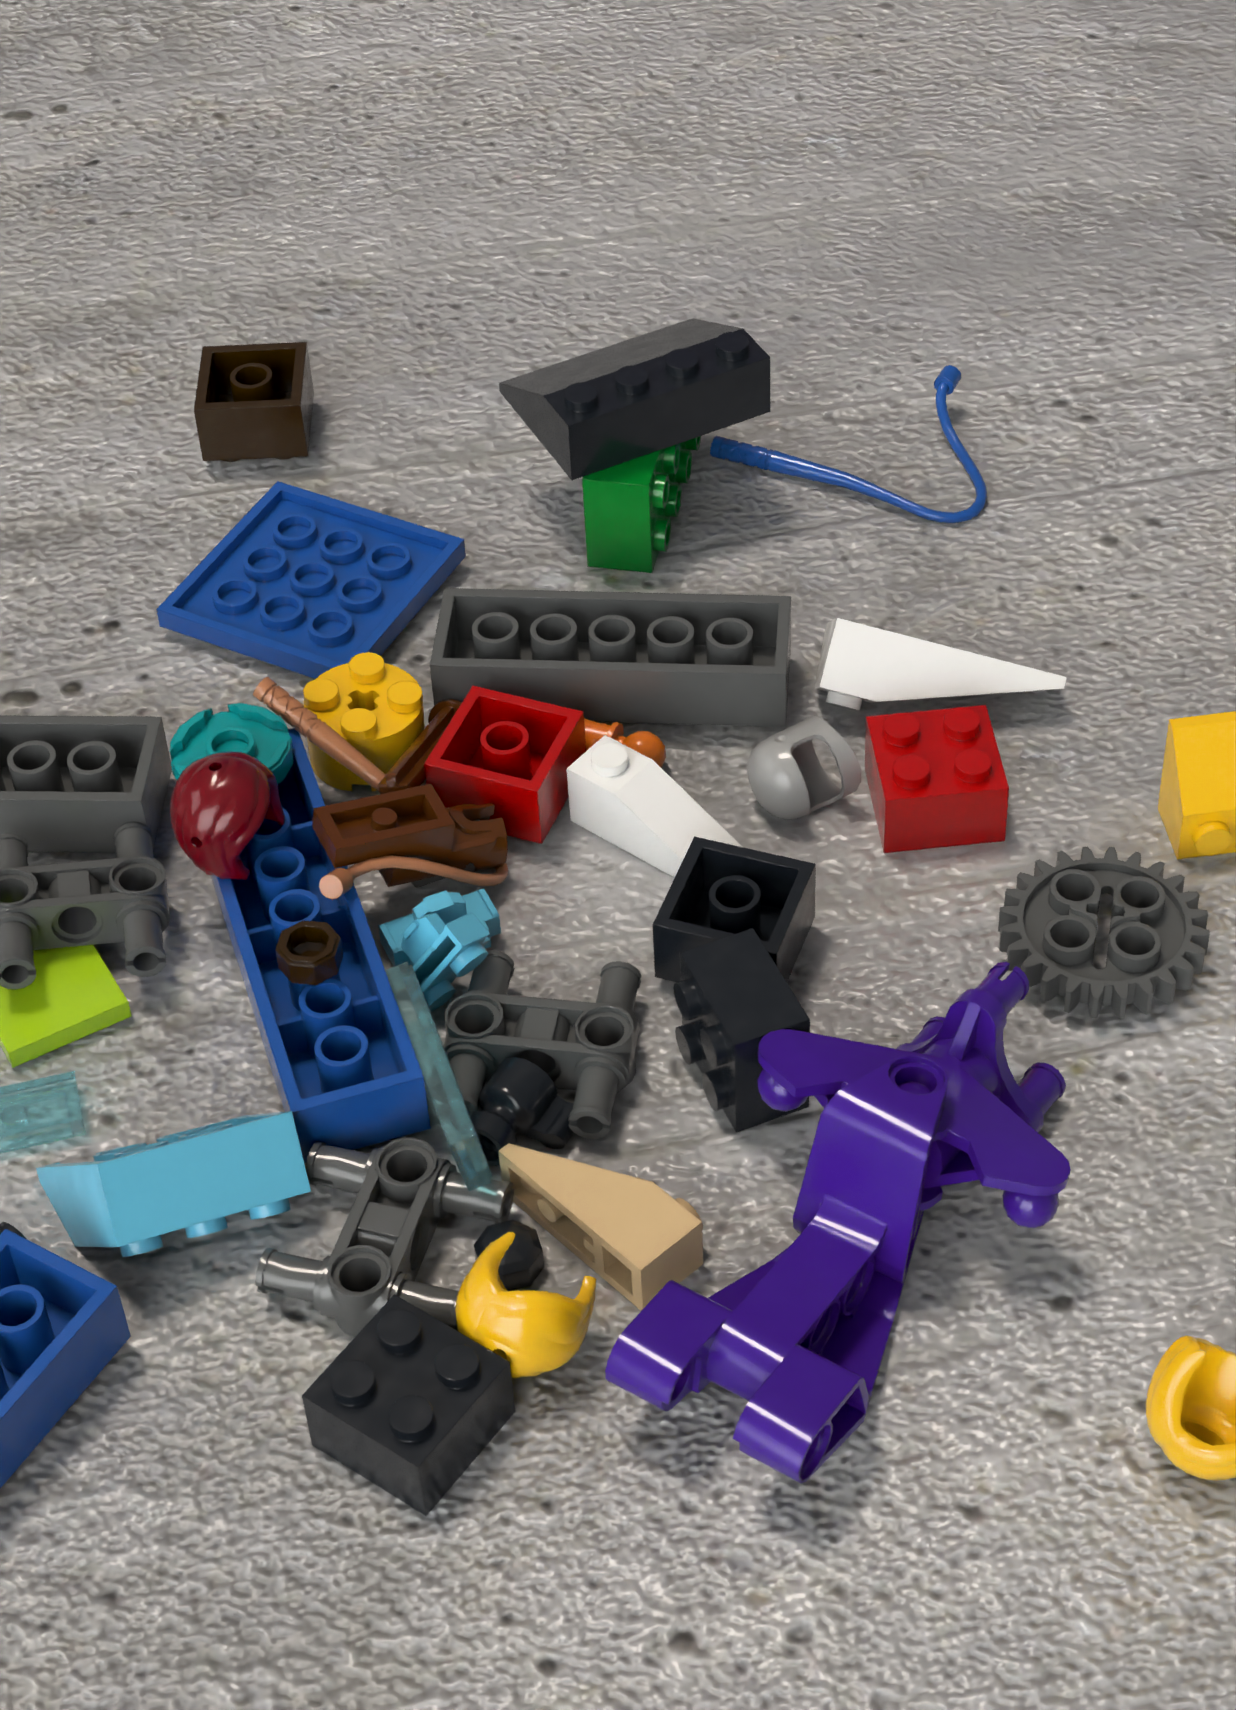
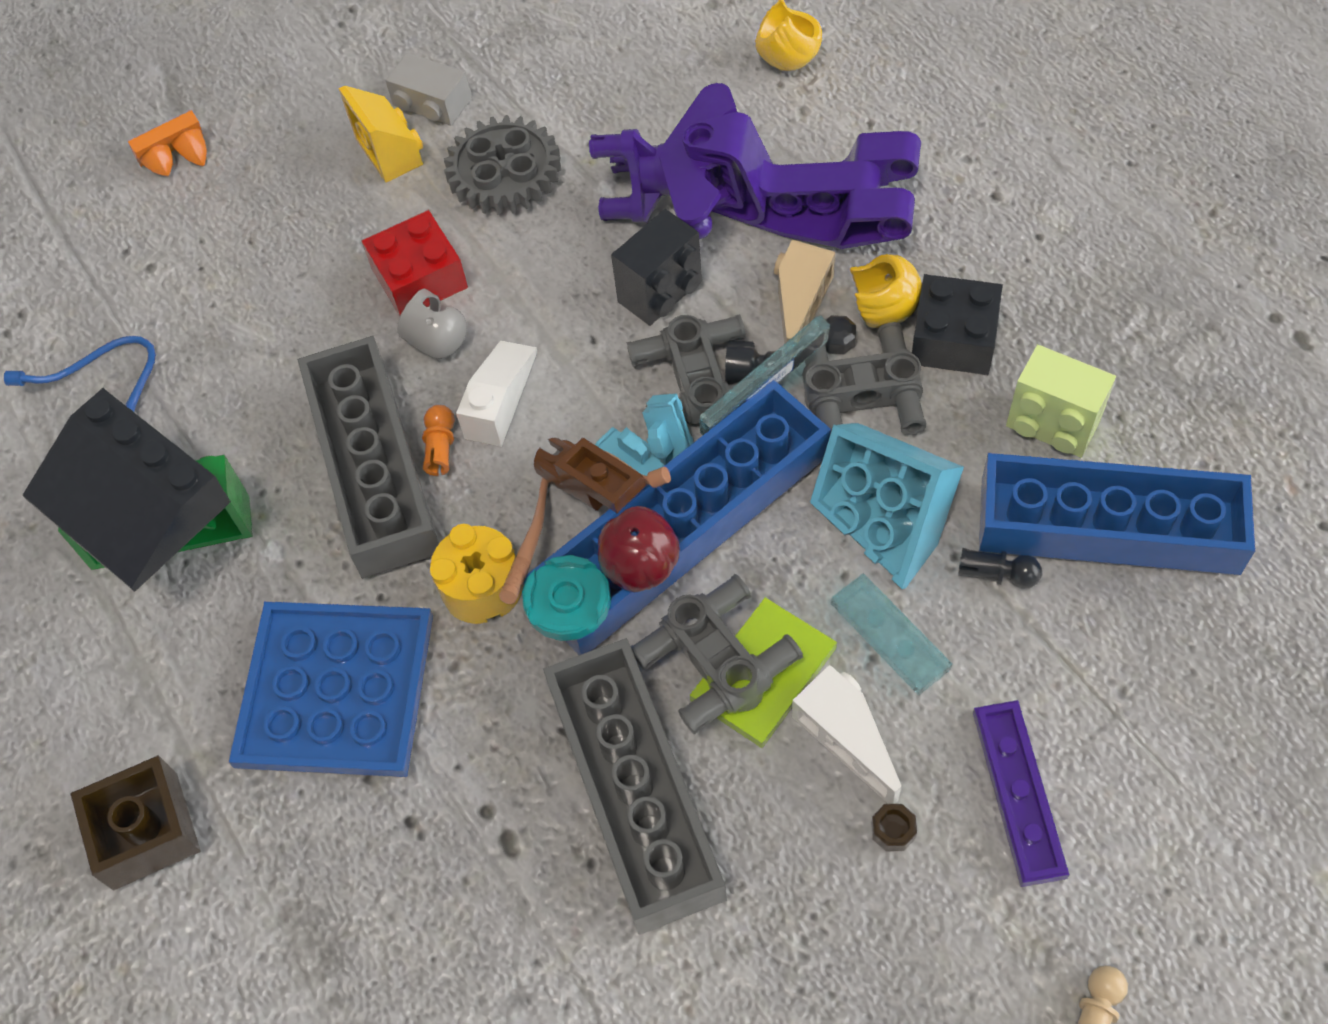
camera: 110 degrees left, 15 degrees up
(152, 1450) = (1059, 400): none -> yellowish green brick
(309, 952) = (722, 462): dark brown tile -> none
(409, 768) = (508, 513): reddish brown axle -> none
(510, 756) = (488, 470): red brick -> none
(729, 891) = (572, 307): black brick -> none
(887, 666) = (322, 304): white wedge -> none

